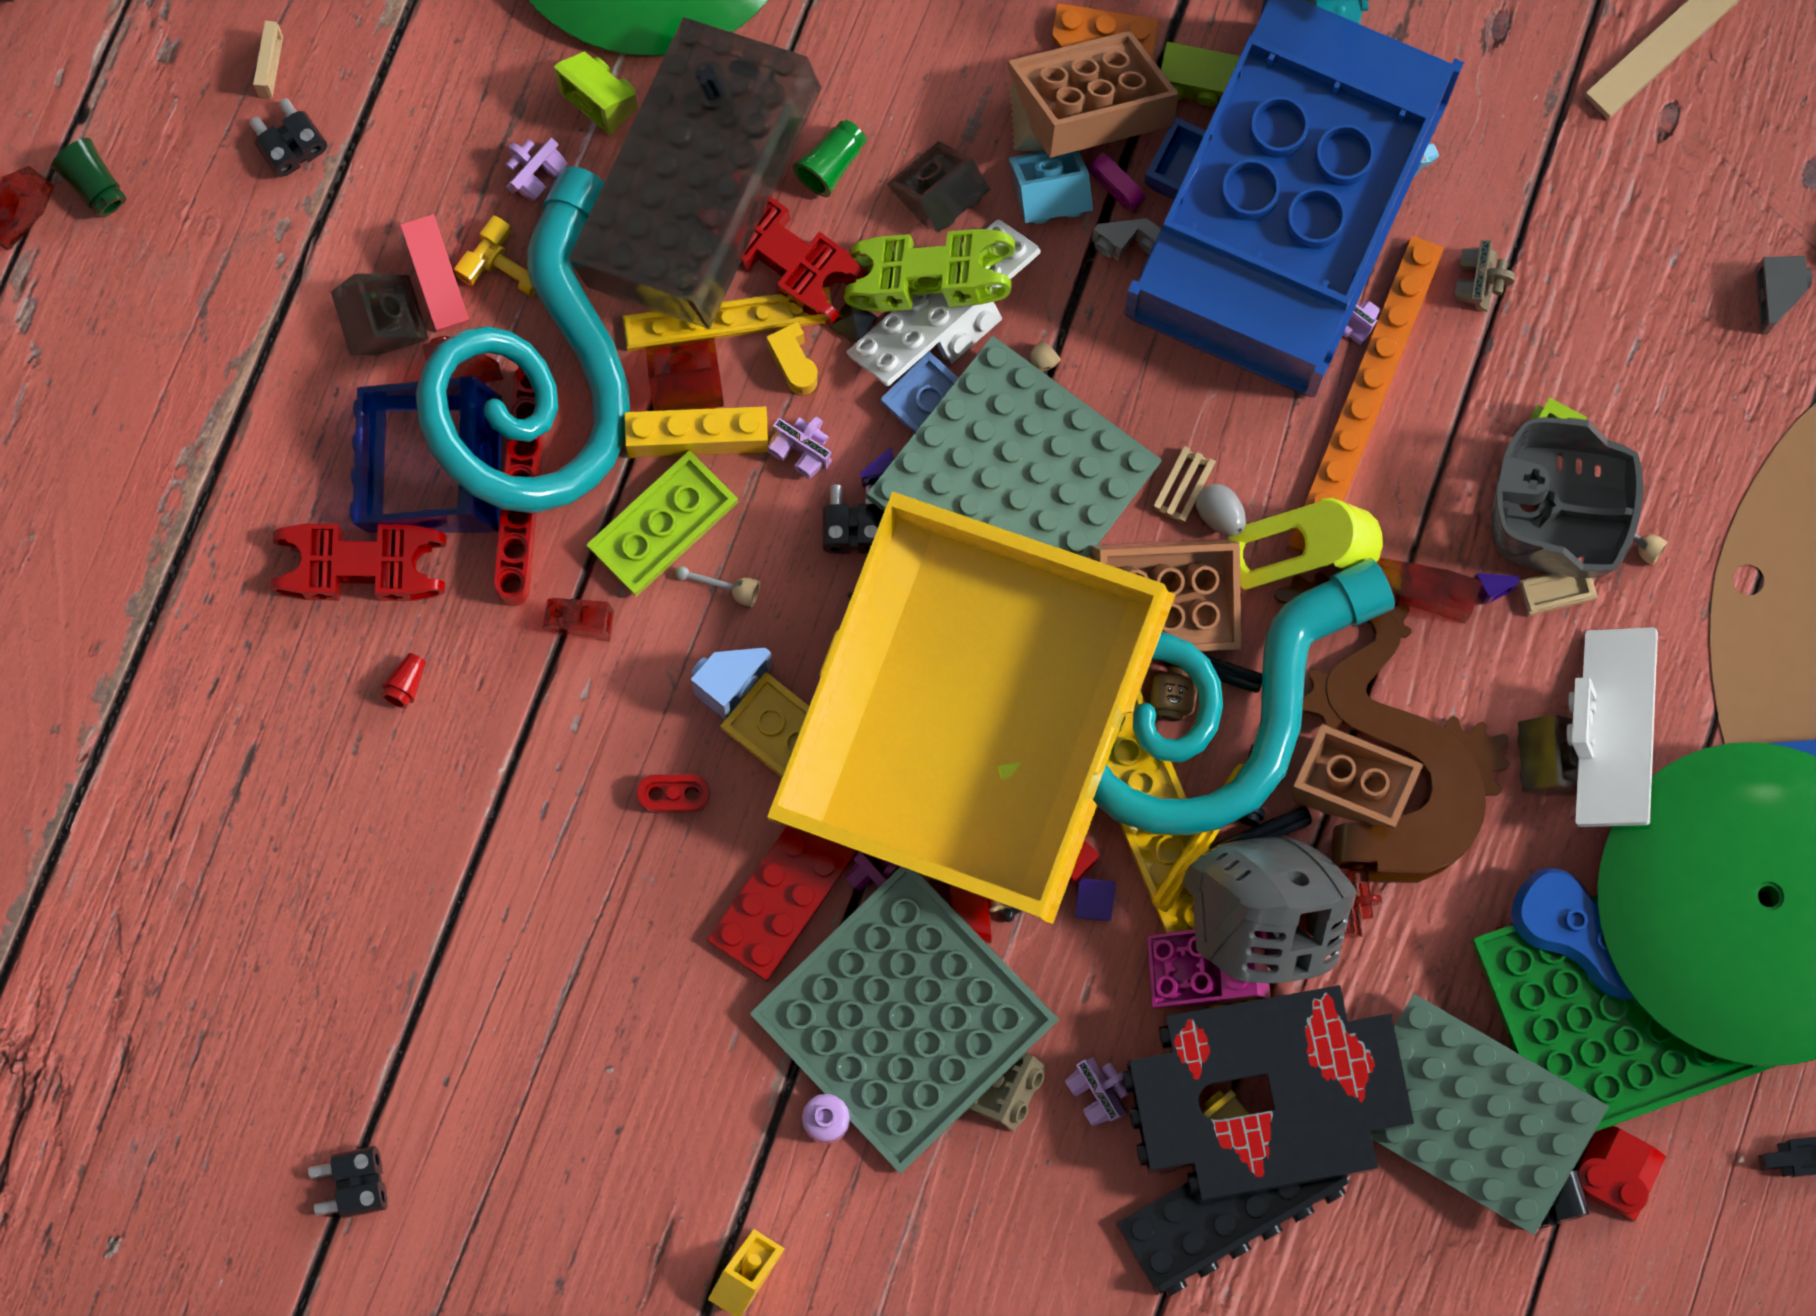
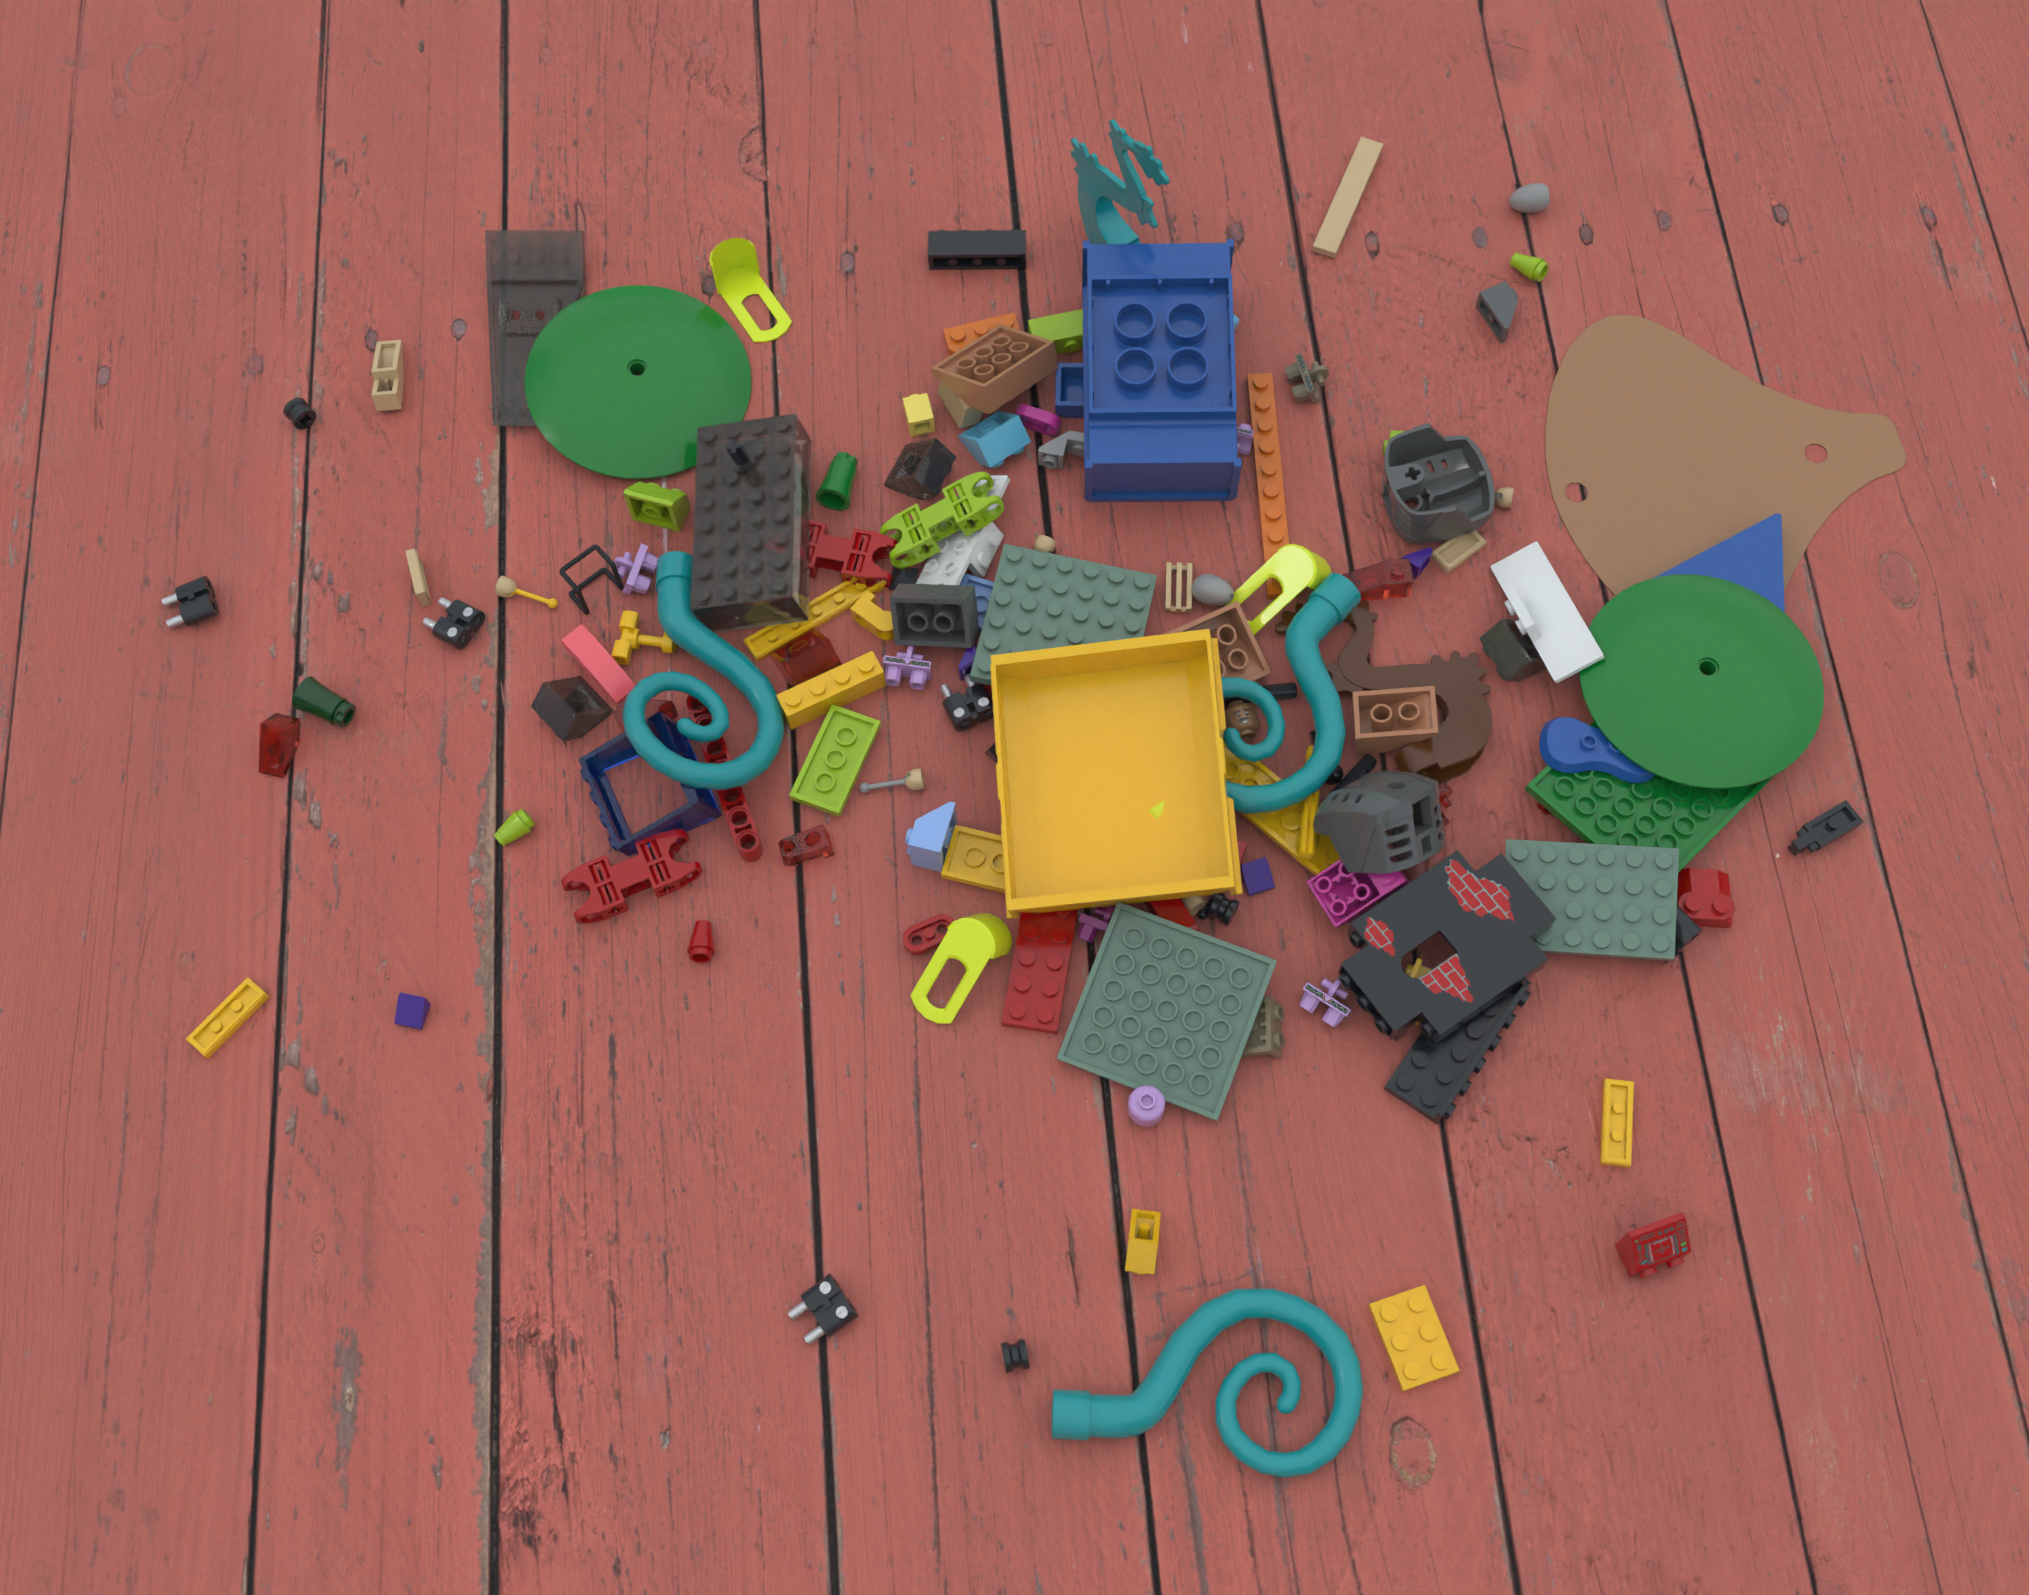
camera: 20 degrees left, 10 degrees down
(37, 613) = (411, 1011): none -> dark purple slope
(249, 438) = (516, 826): none -> lime cone
(369, 121) = (507, 588): none -> hinge
(442, 161) = (580, 601): none -> black piece
(716, 830) = (971, 942): none -> neon yellow piece
(861, 395) = (934, 615): none -> dark grey brick
(971, 108) = (918, 414): none -> light yellow brick
(1032, 926) = (1223, 908): none -> black wheel

